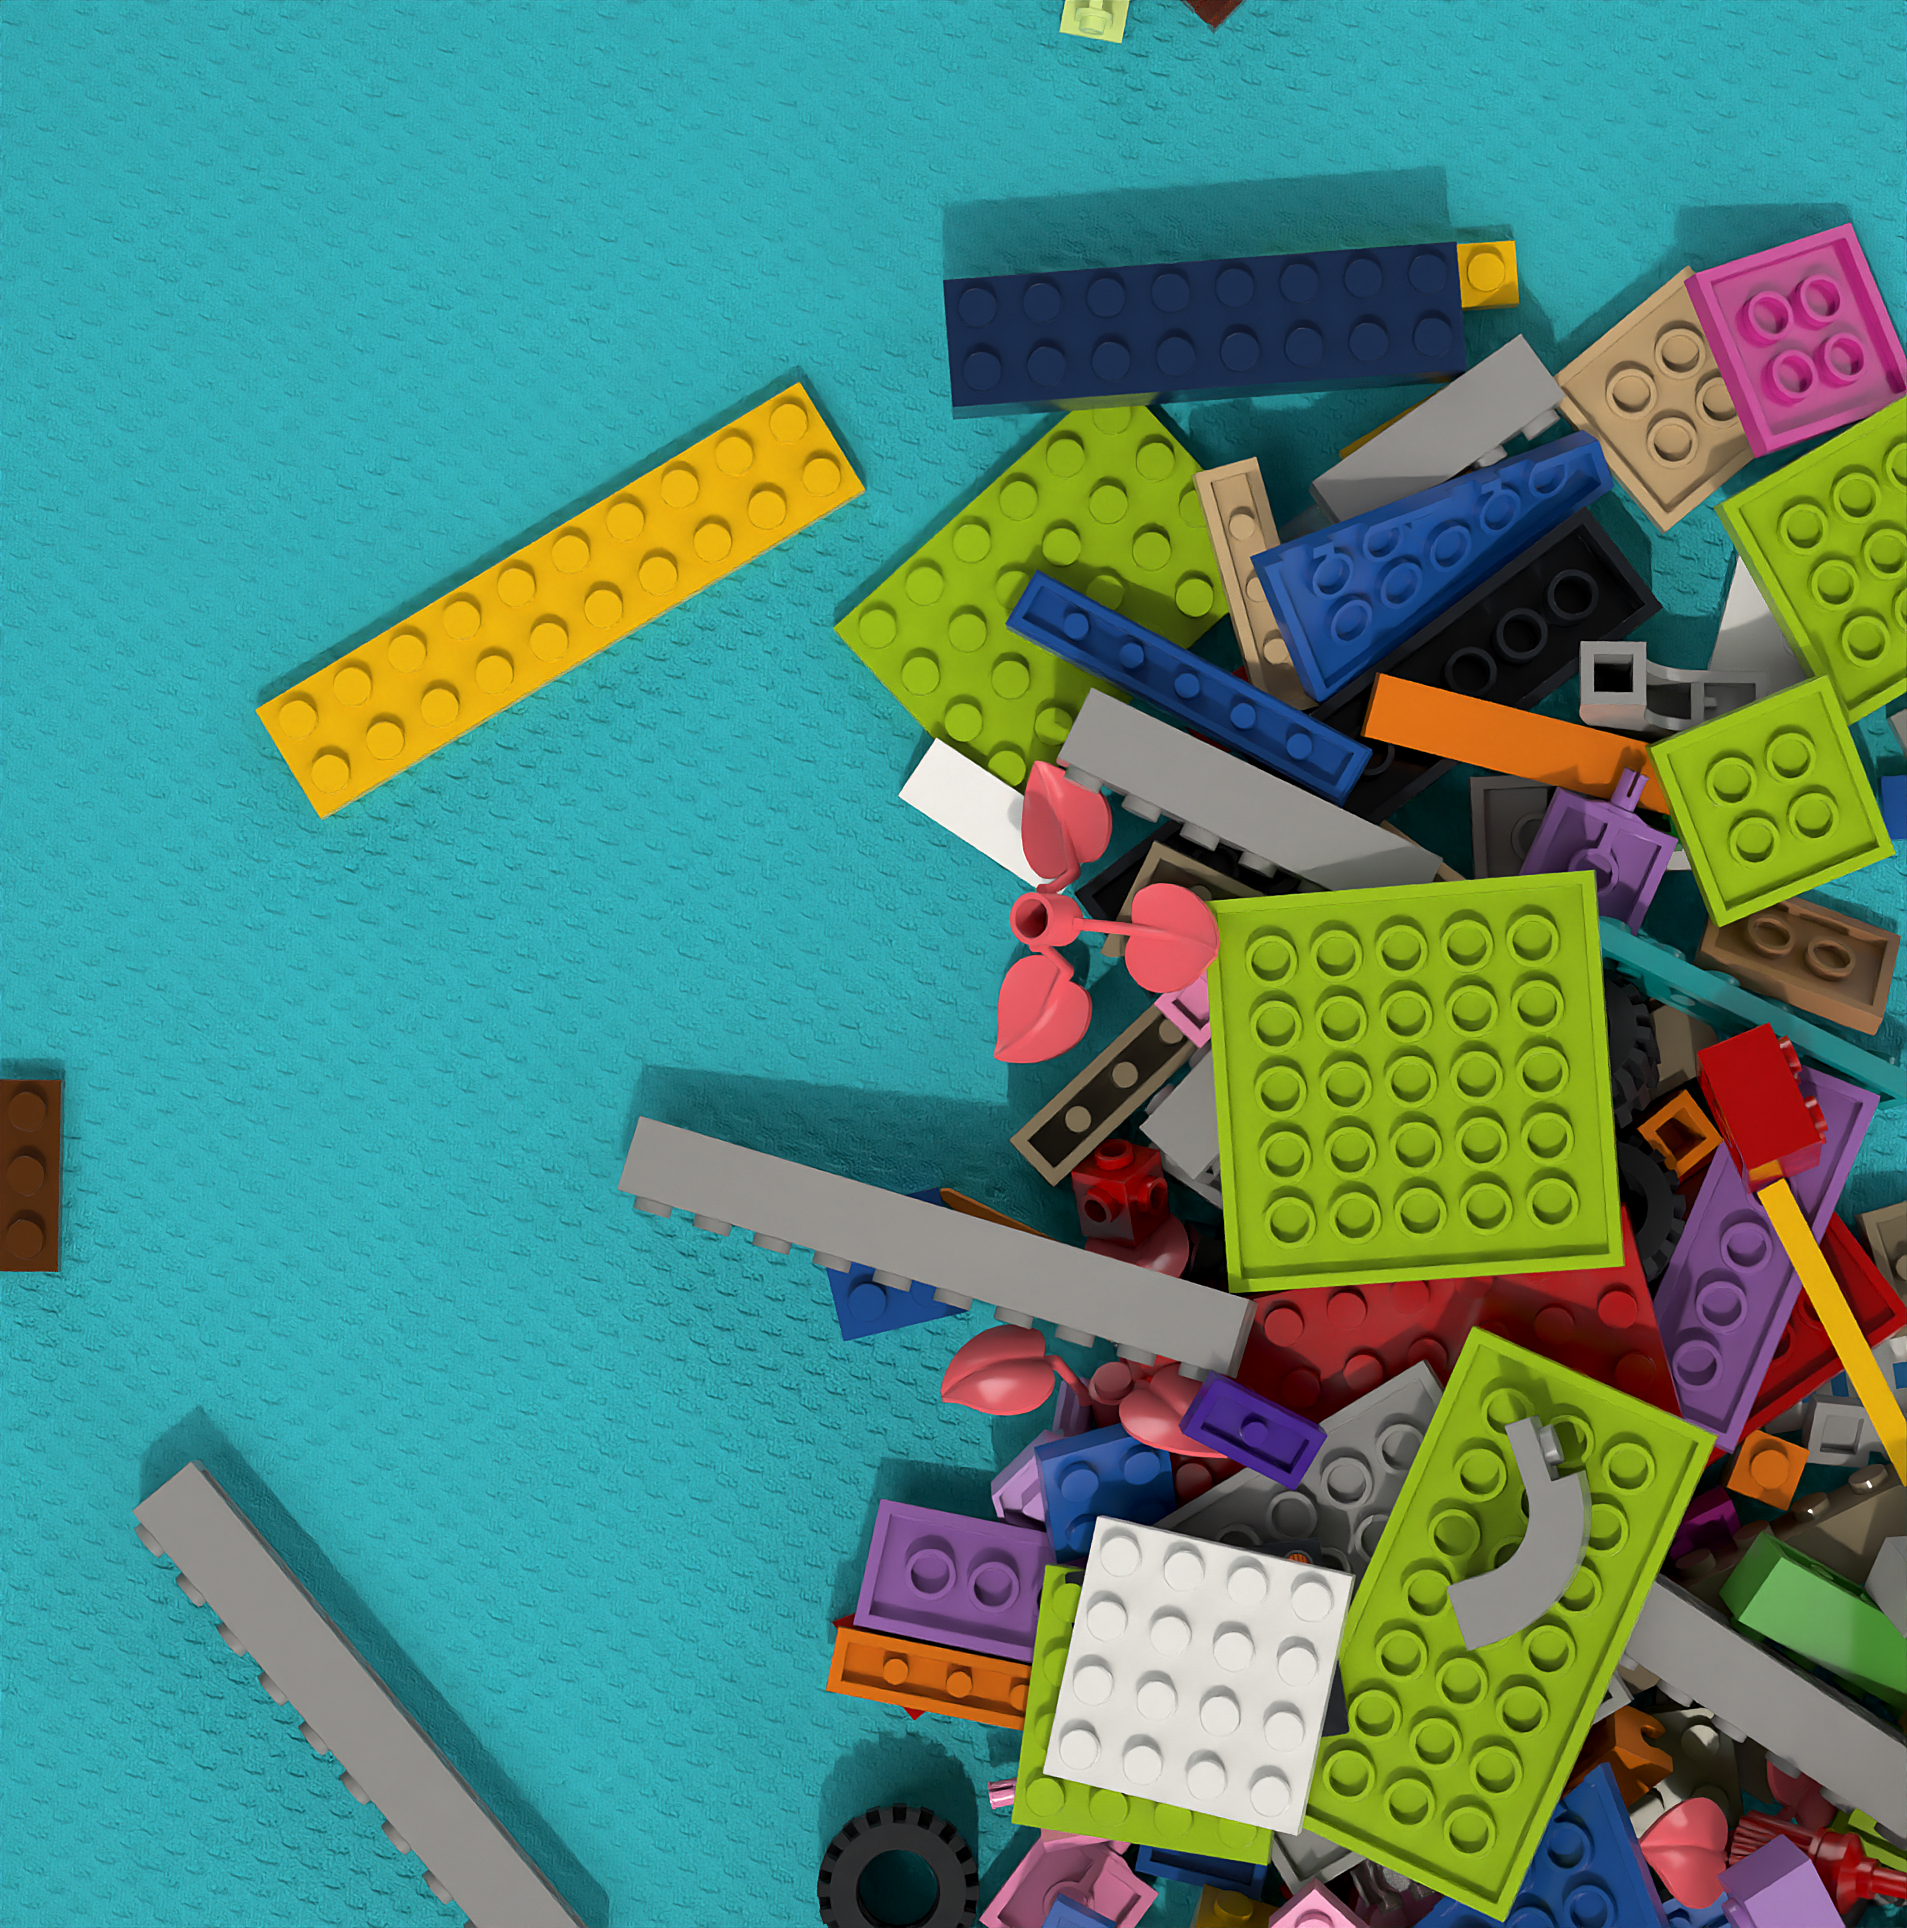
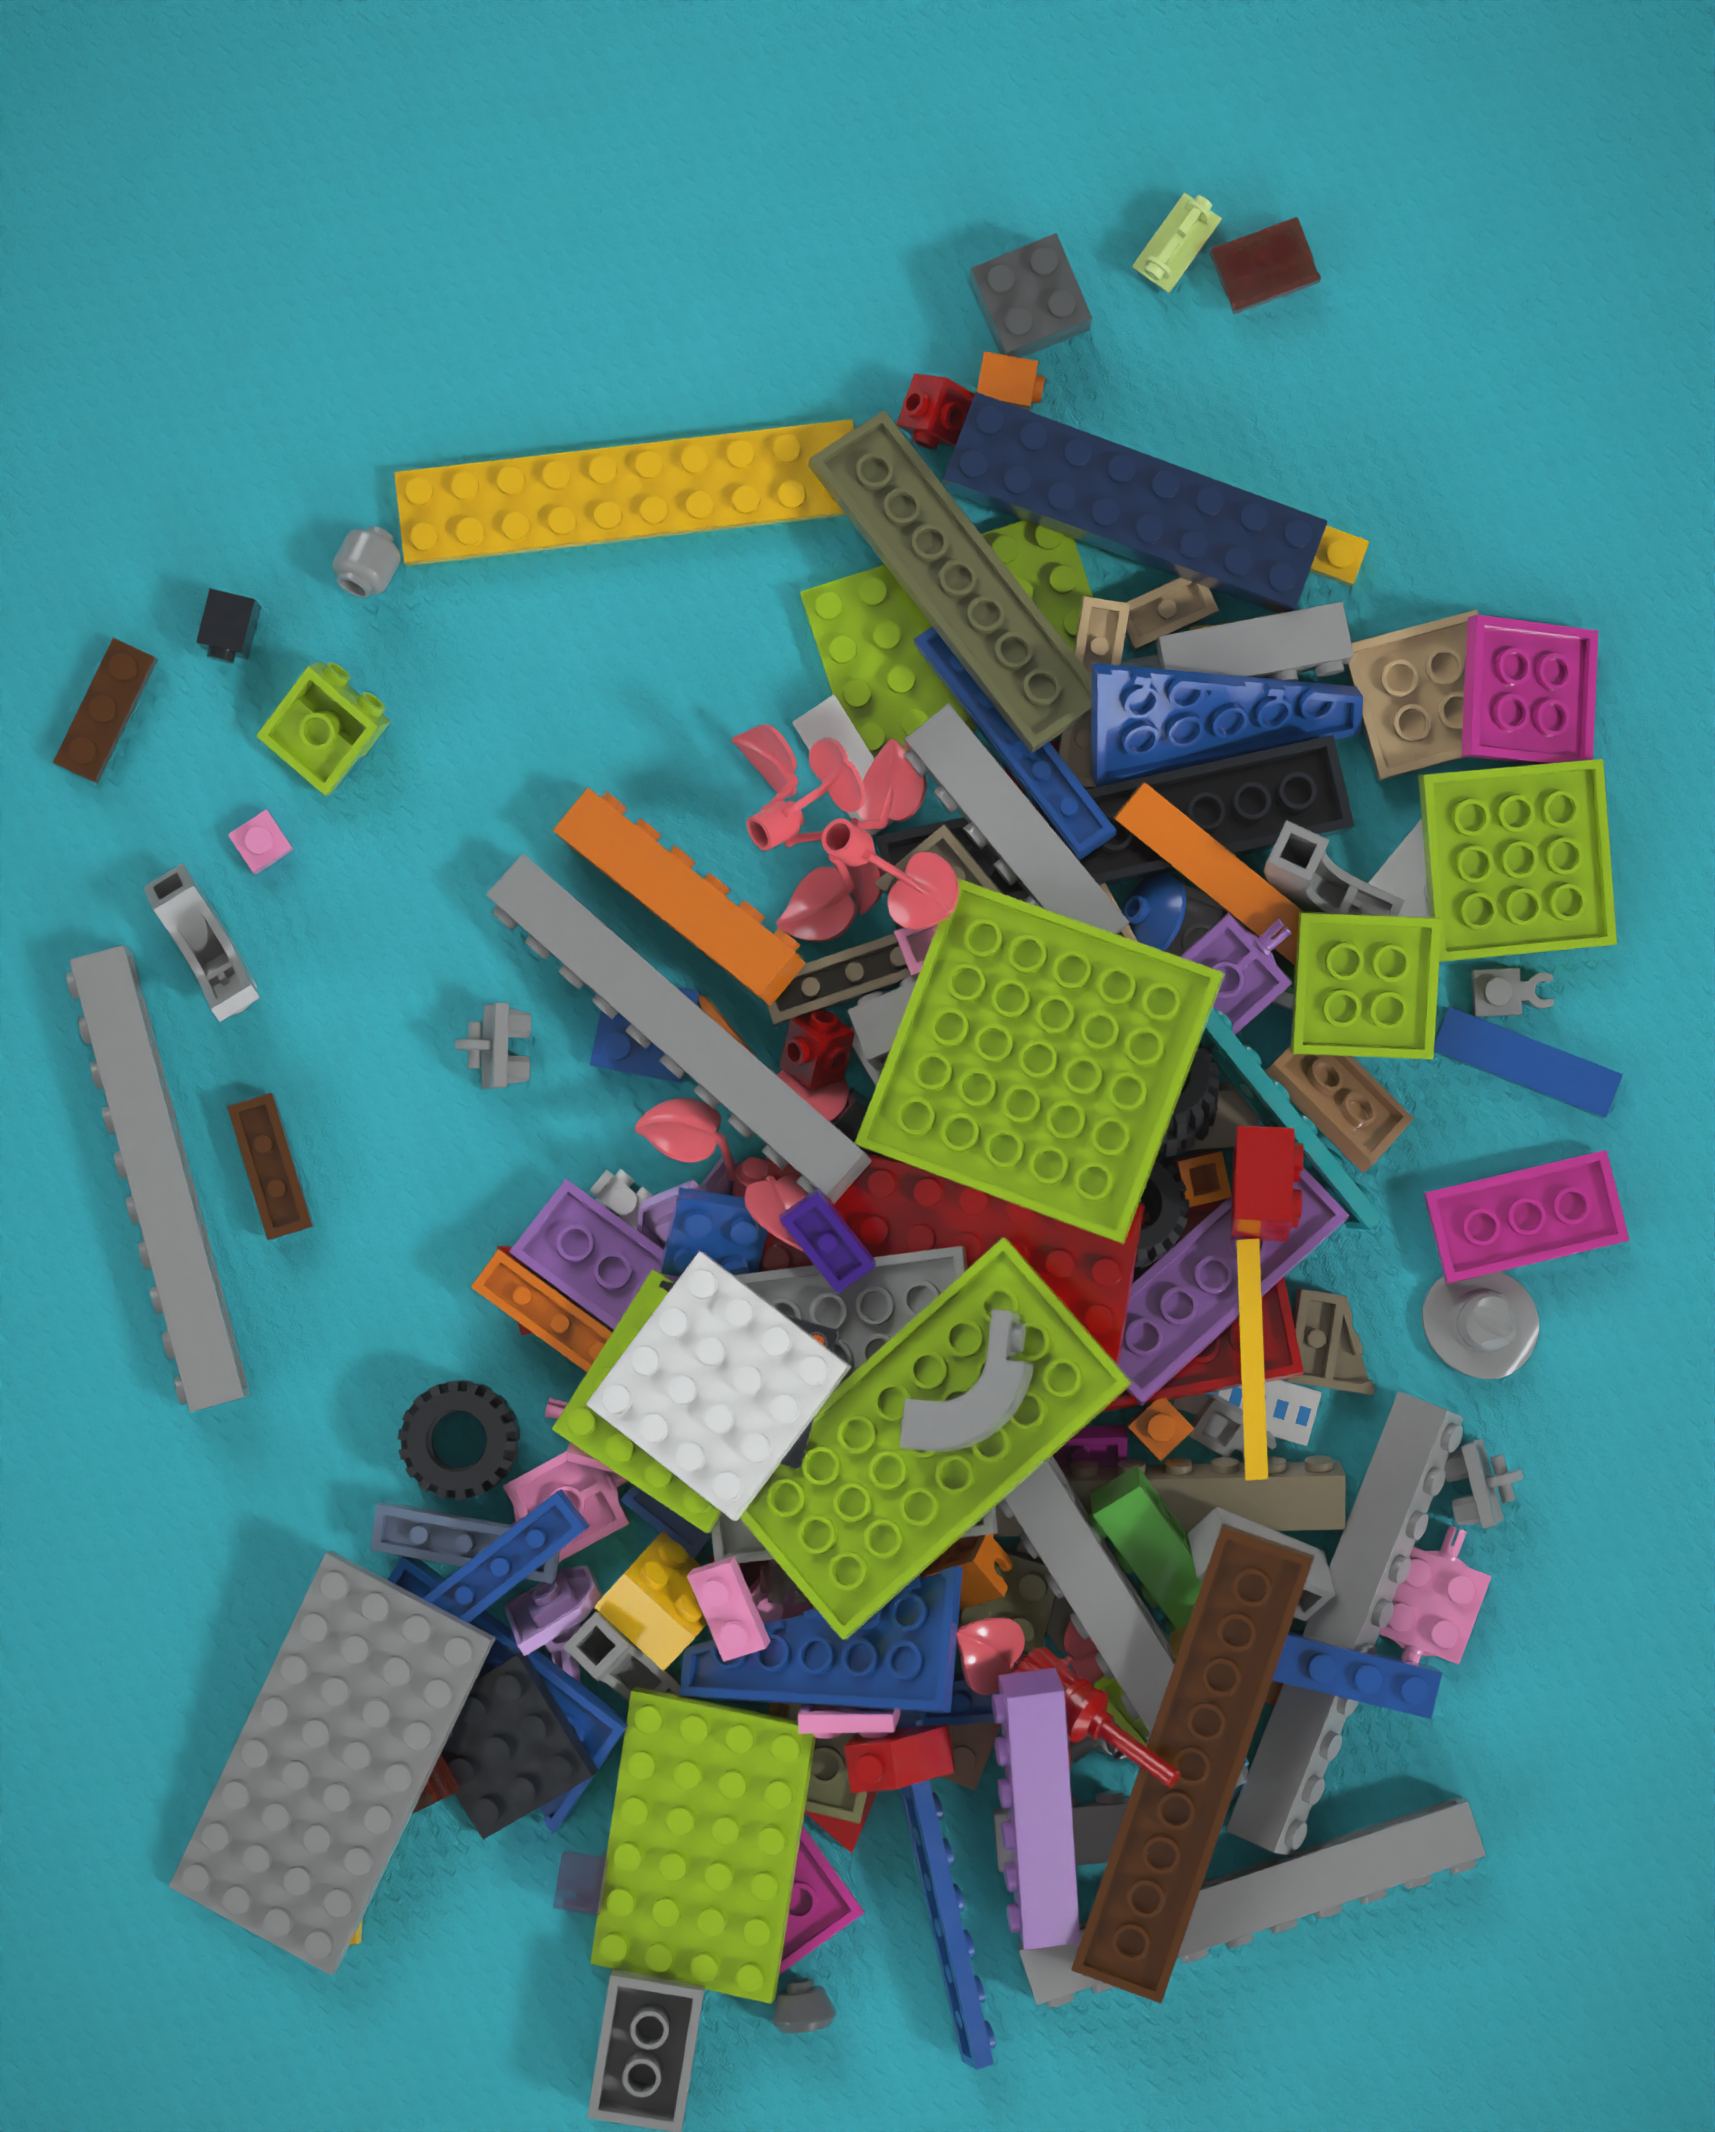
camera: 25 degrees right, 0 degrees up
(136, 999) = (228, 626): none -> black brick
(272, 839) = (366, 561): none -> light grey head
(290, 1412) = (203, 941): none -> light grey arch
(301, 1251) = (260, 842): none -> bright pink plate
(315, 1069) = (324, 725): none -> lime plate
(502, 1653) = (270, 1166): none -> reddish brown plate
(708, 1376) = (498, 1026): none -> light grey hips
(863, 1080) = (679, 896): none -> orange brick
(899, 325) = (934, 411): none -> red brick
(949, 928) = (782, 820): none -> coral plant
(950, 1489) = (614, 1194): none -> white piece
(952, 130) = (1030, 298): none -> dark grey brick
(975, 245) = (1010, 380): none -> orange brick
(1026, 527) = (956, 580): none -> olive plate
(1304, 442) = (1167, 611): none -> tan plate
(1464, 825) = (1156, 910): none -> blue dish

